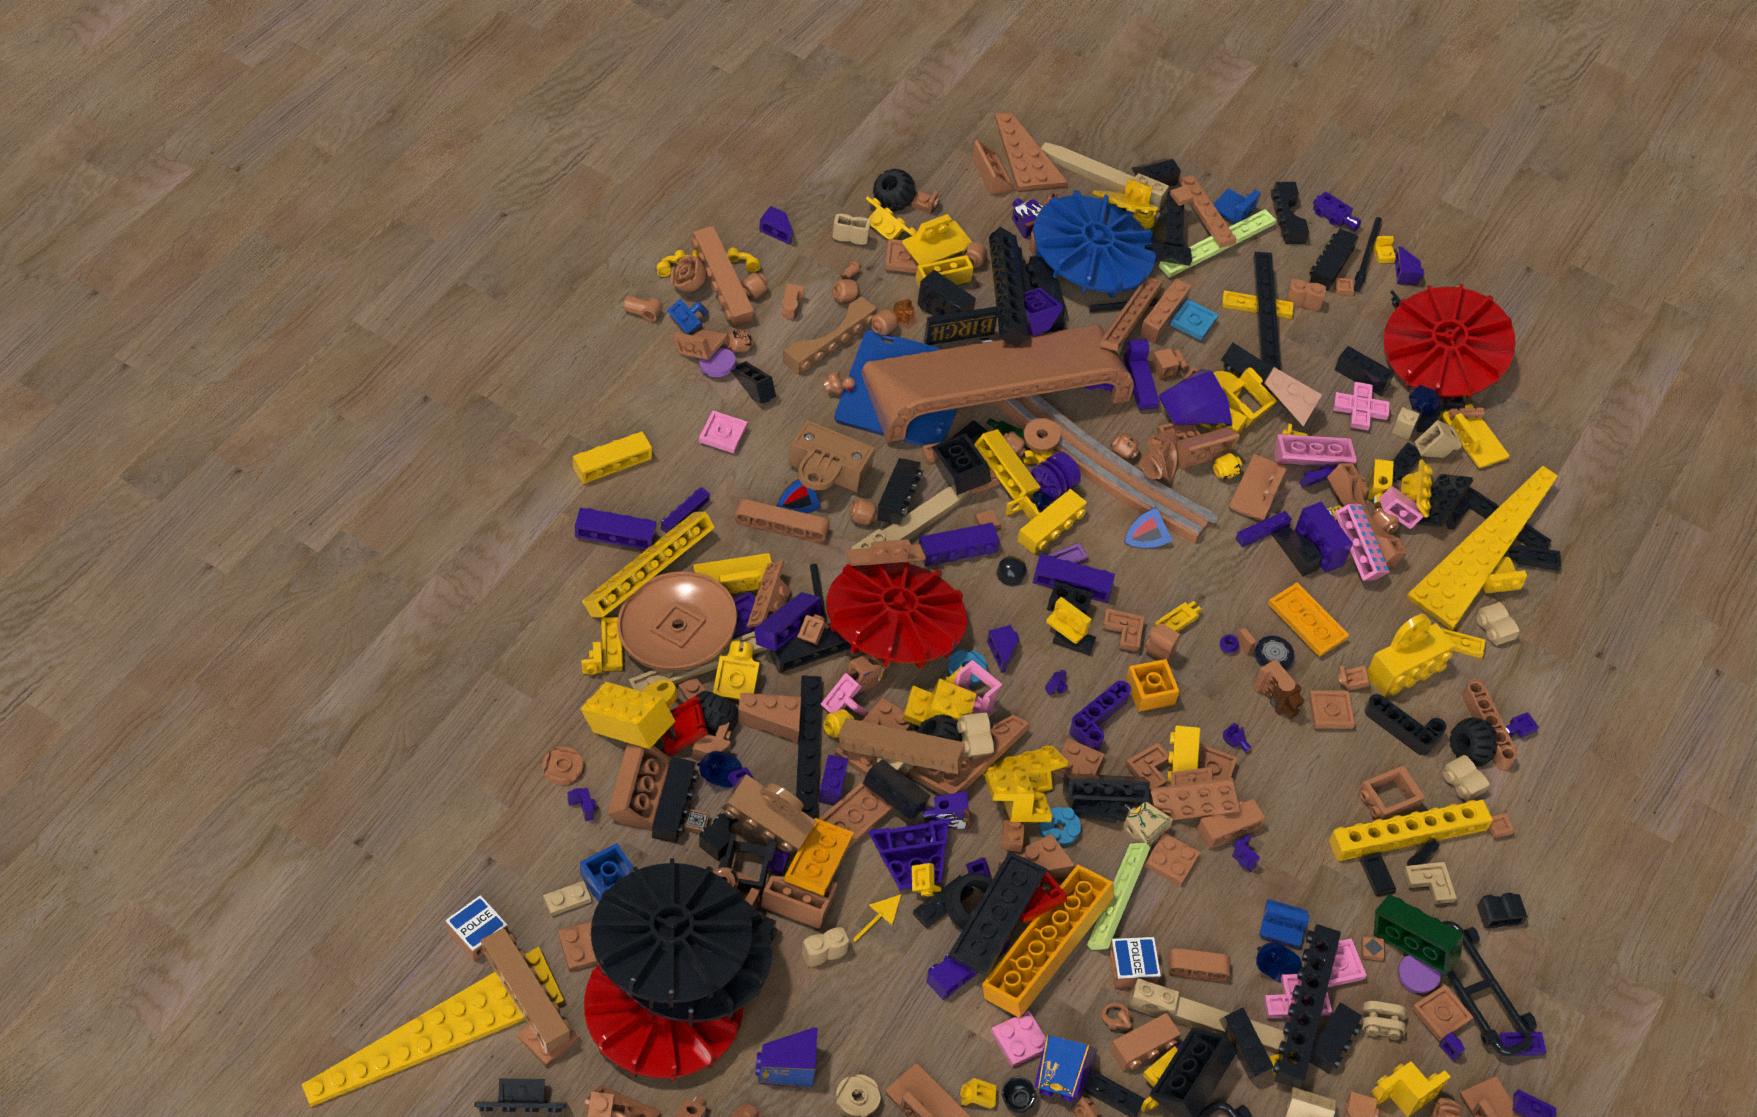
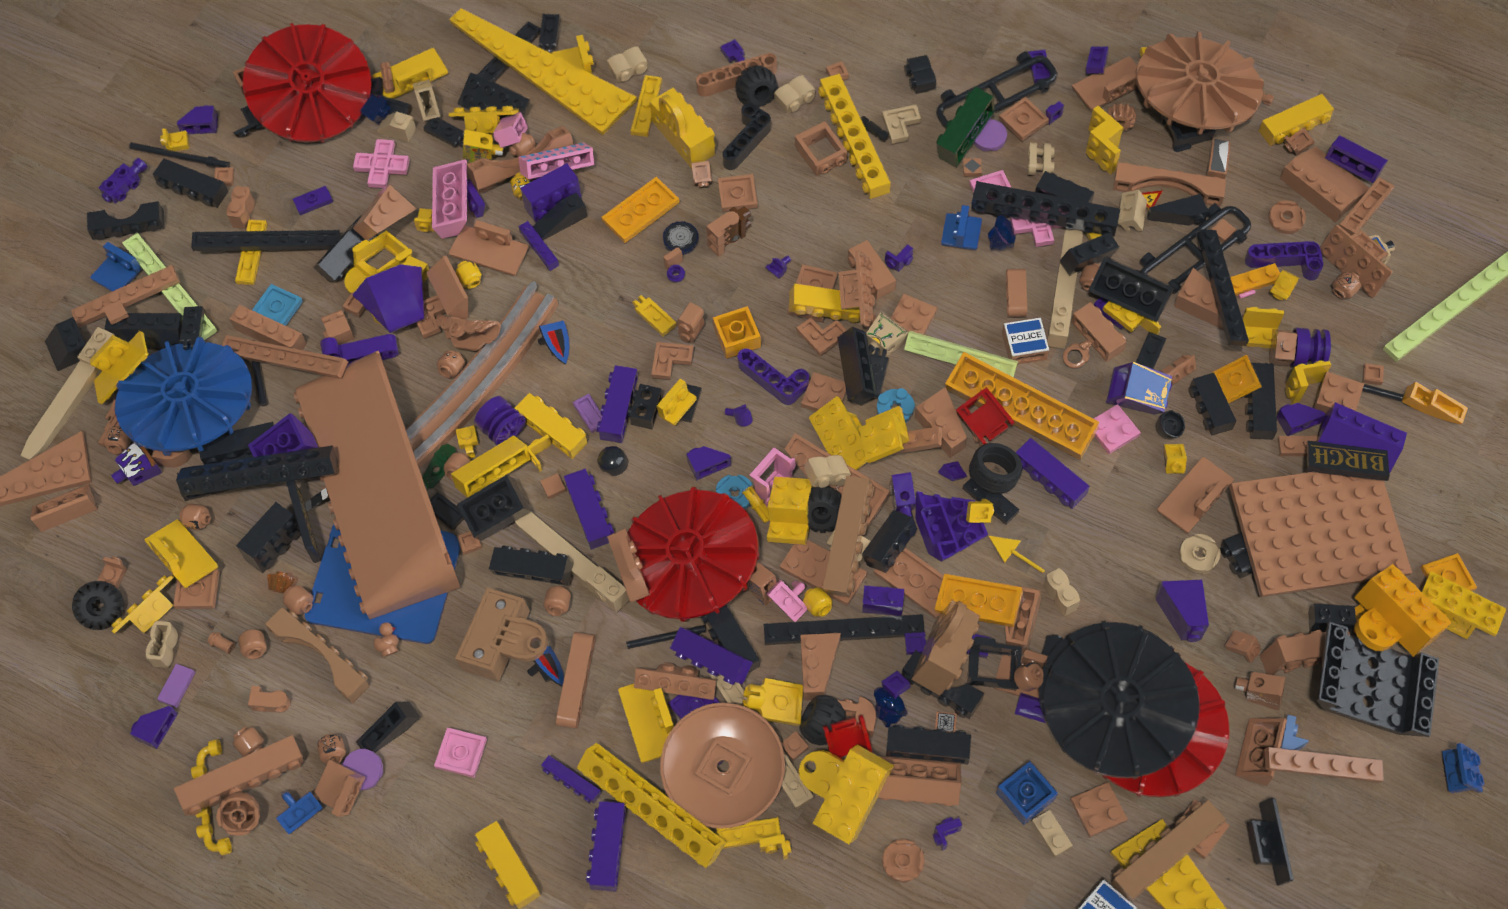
camera: 85 degrees left, 10 degrees up
(647, 309) = (286, 856): nougat piece -> none
(812, 629) = (721, 629): nougat bracket -> none
(814, 242) = (176, 686): none -> medium lavender tile
(956, 269) = (225, 543): yellow brick -> none
(997, 913) = (1014, 441): black plate -> none
(1041, 501) = (527, 436): clear blue plate -> none
(1044, 426) = (443, 426): nougat tile -> none
(1317, 352) = (312, 200): none -> dark purple plate
(1364, 370) = (338, 159): black brick -> none
(1378, 874) = (900, 162): black tile -> none

